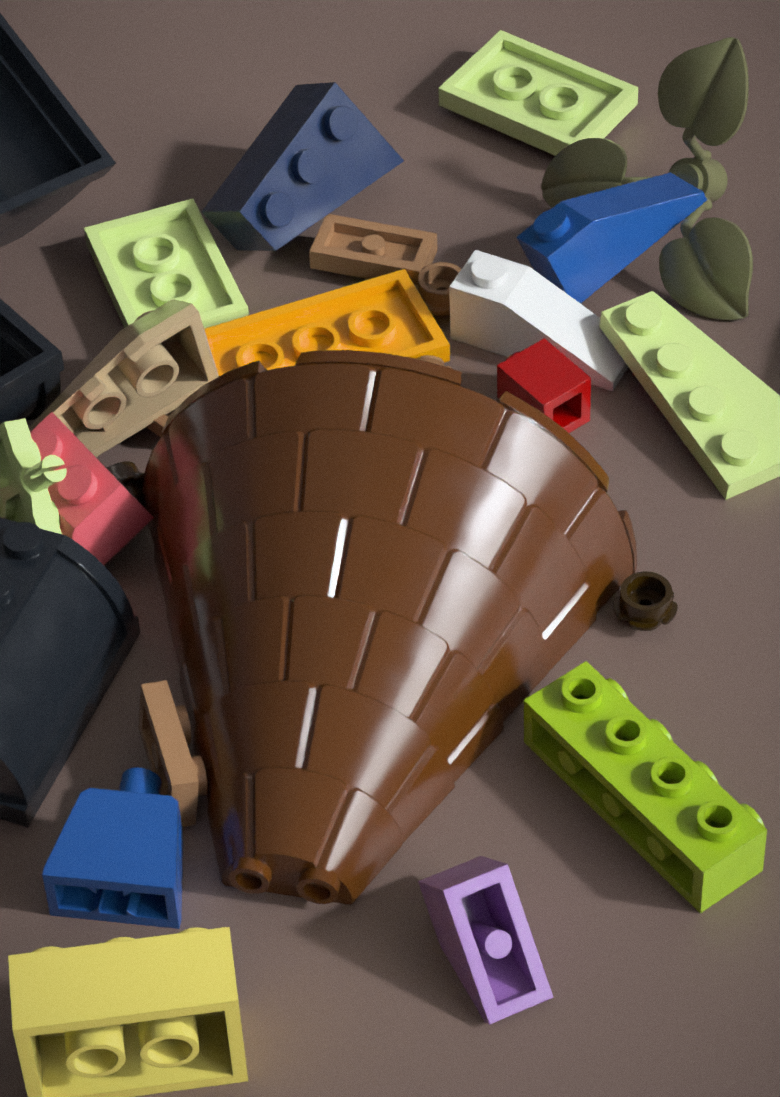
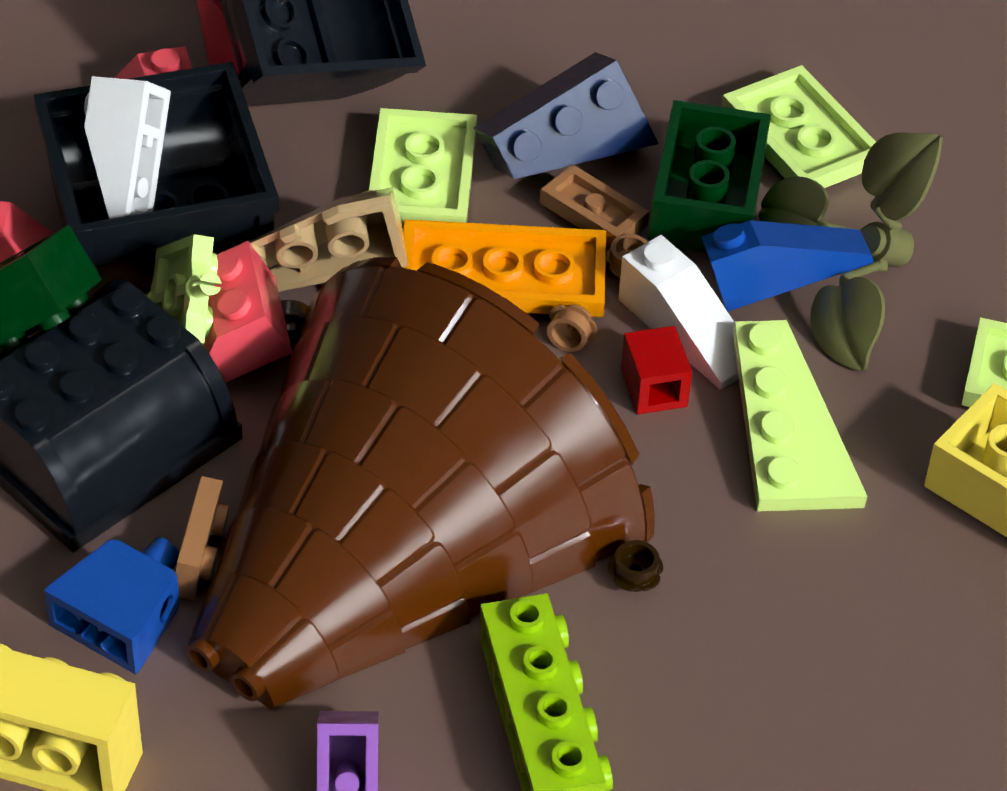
camera: 20 degrees right, 0 degrees up
(478, 172) = (707, 172): none -> dark green brick

